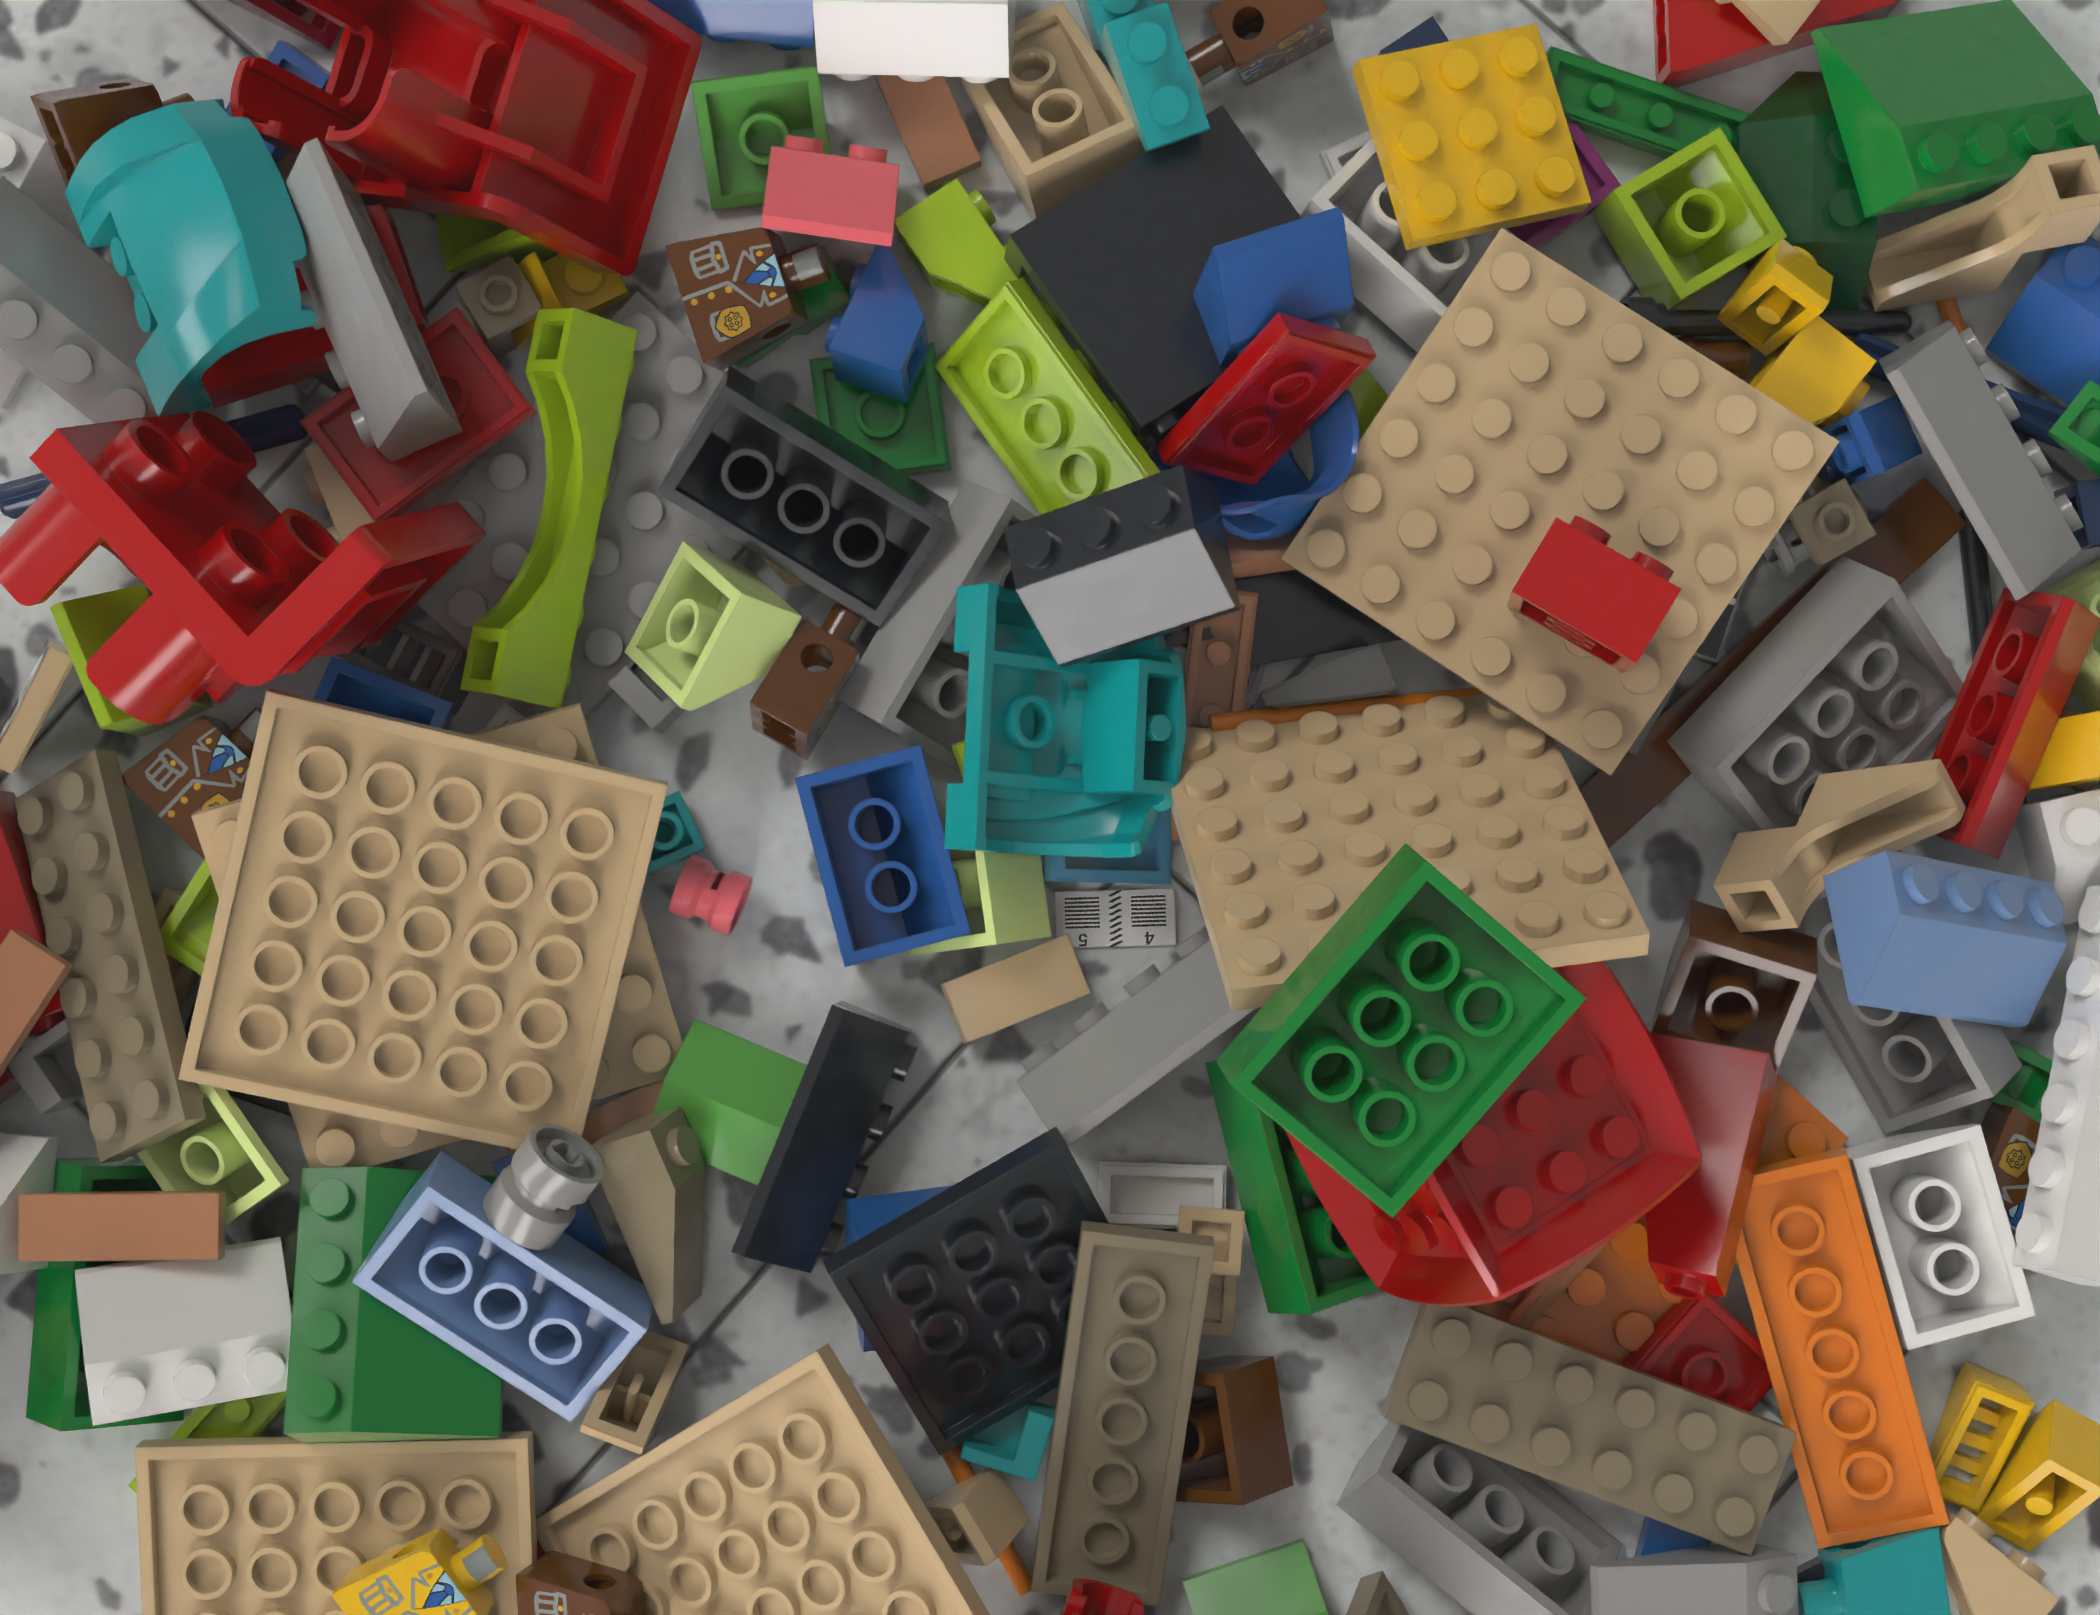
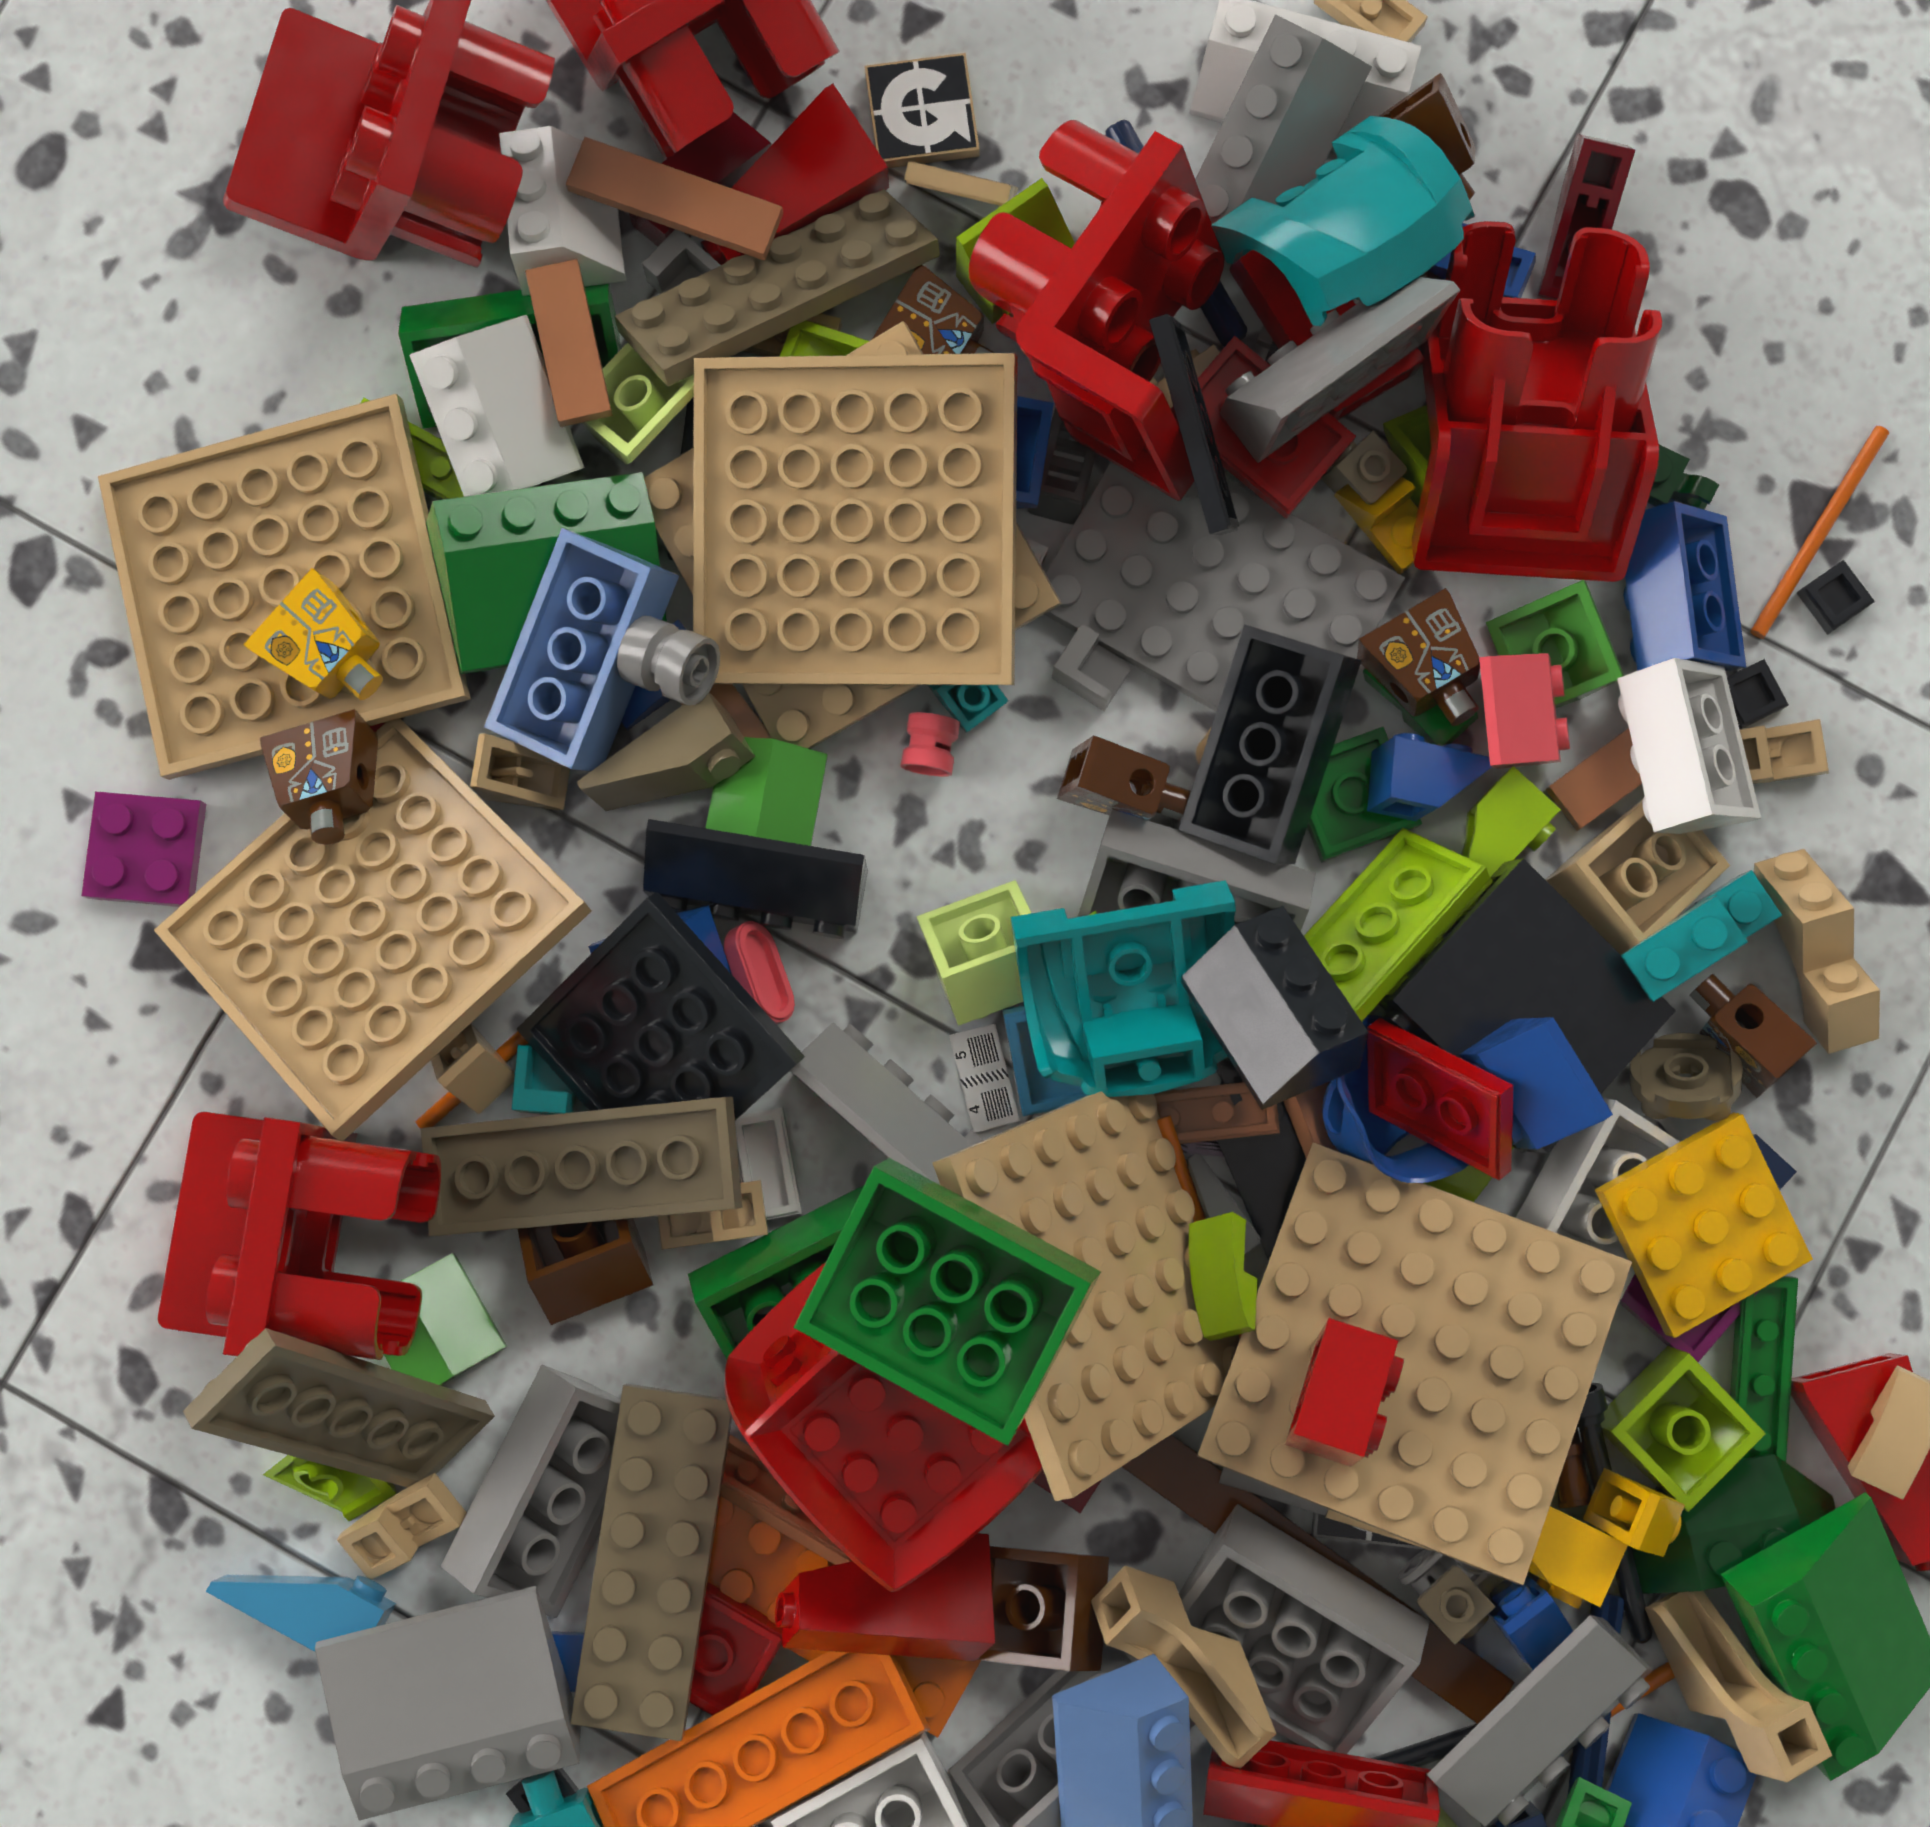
camera: 75 degrees right, 5 degrees down
(402, 495) = (1194, 425): none -> black tile
(579, 383) = (1319, 545): lime arch -> none
(710, 628) = (1145, 693): yellowish green slope -> none
(882, 855) = (992, 871): blue slope -> none
(935, 1154) = (759, 969): none -> coral tile
(1015, 989) = (908, 1007): tan slope -> none
(1326, 98) = (1706, 1094): none -> dark tan plate
(1421, 703) = (1220, 1286): none -> lime slope

